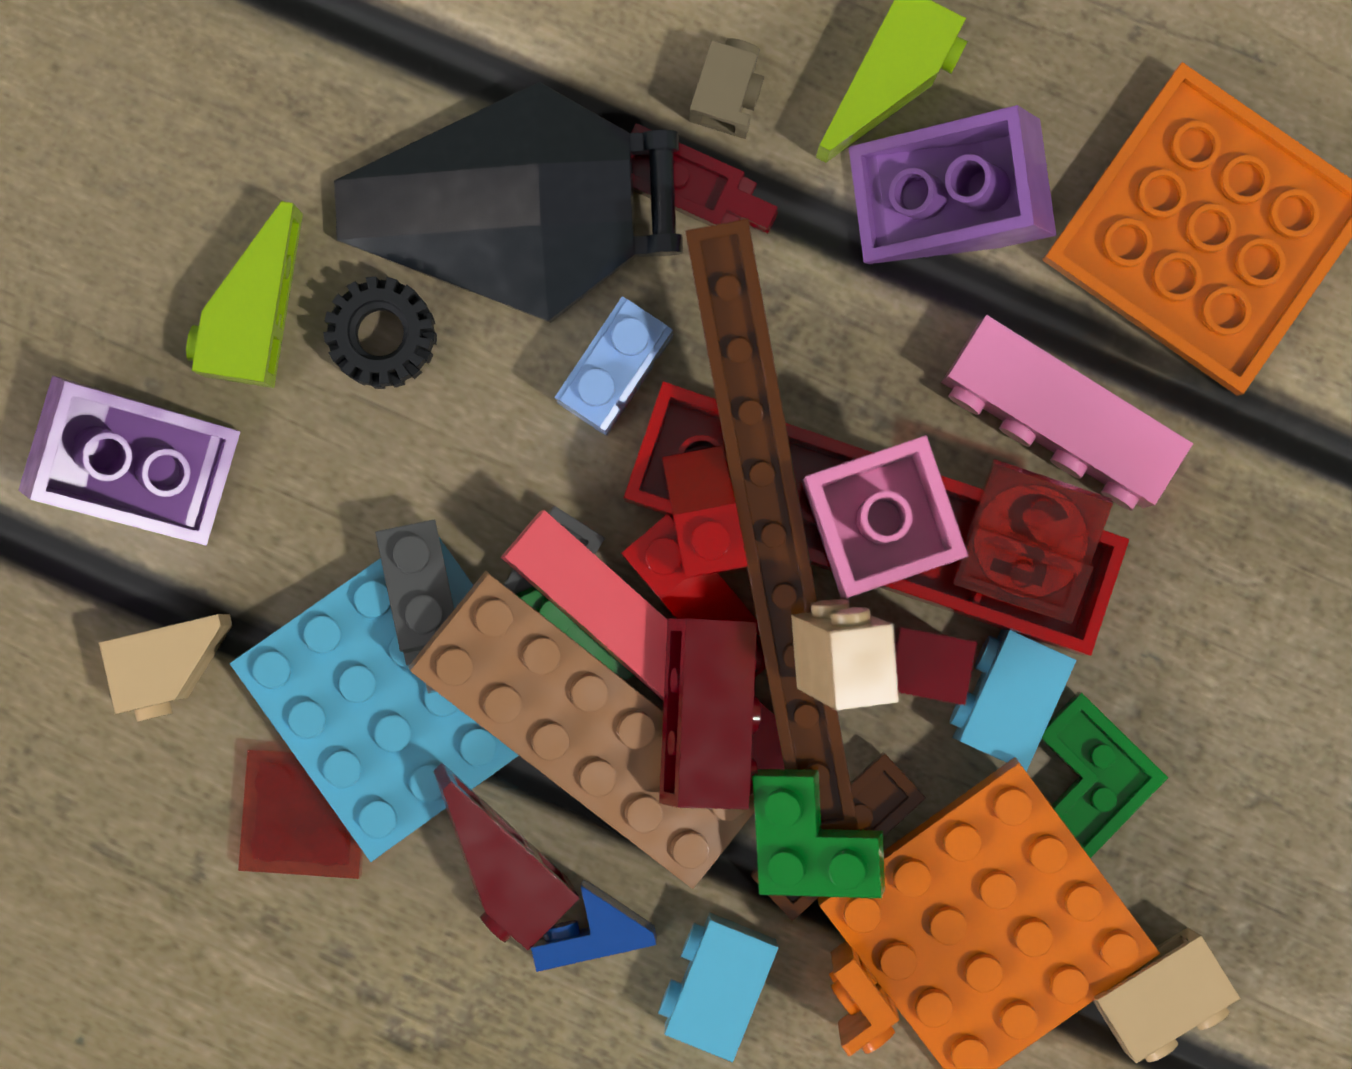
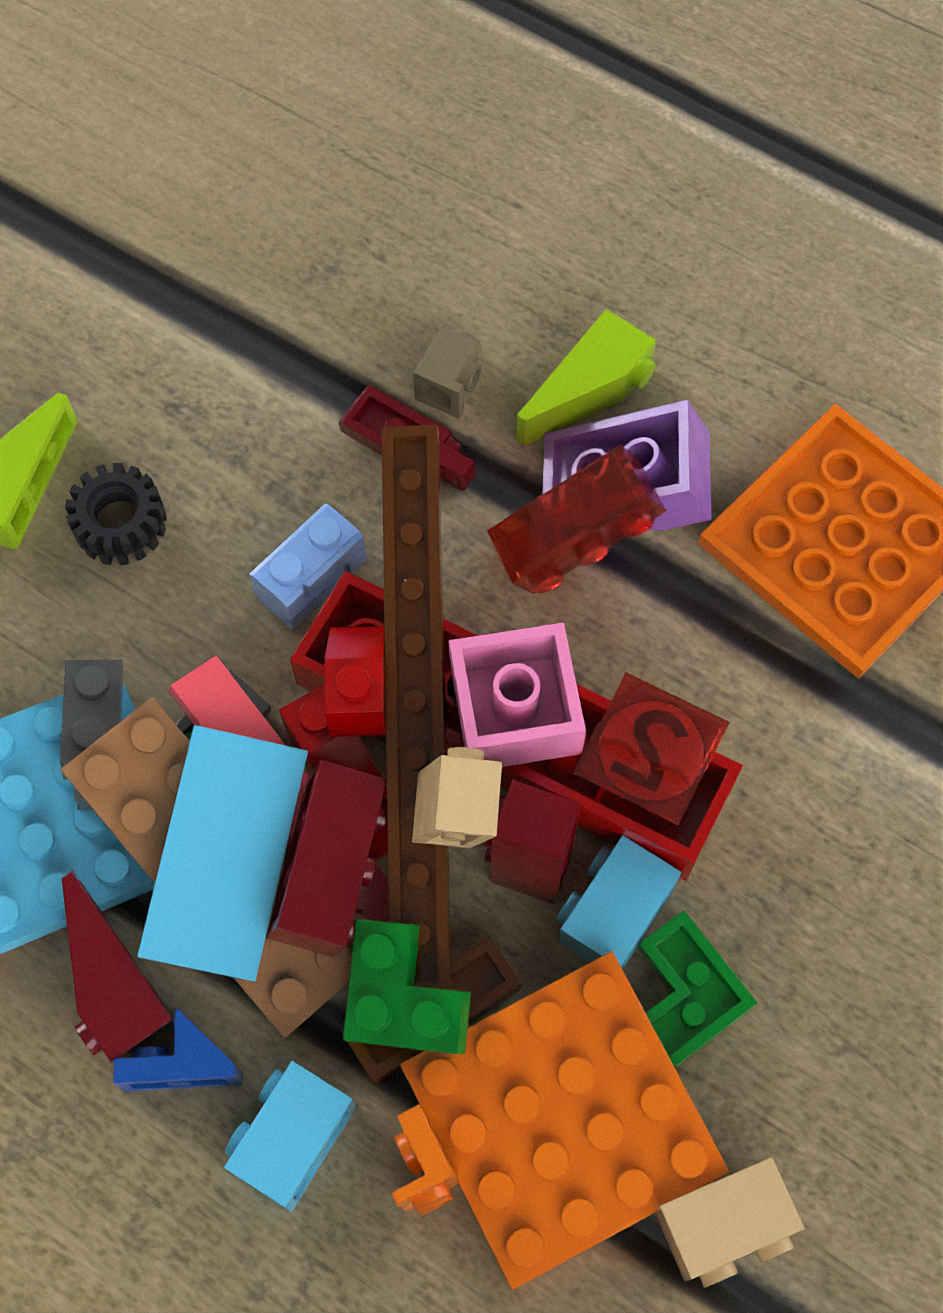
camera: 10 degrees right, 20 degrees down
(514, 202) = (253, 432): black windscreen -> none
(600, 727) = (223, 854): none -> medium azure tile
(910, 274) = (577, 521): none -> clear red brick
(1066, 414) = (700, 664): bright pink brick -> none

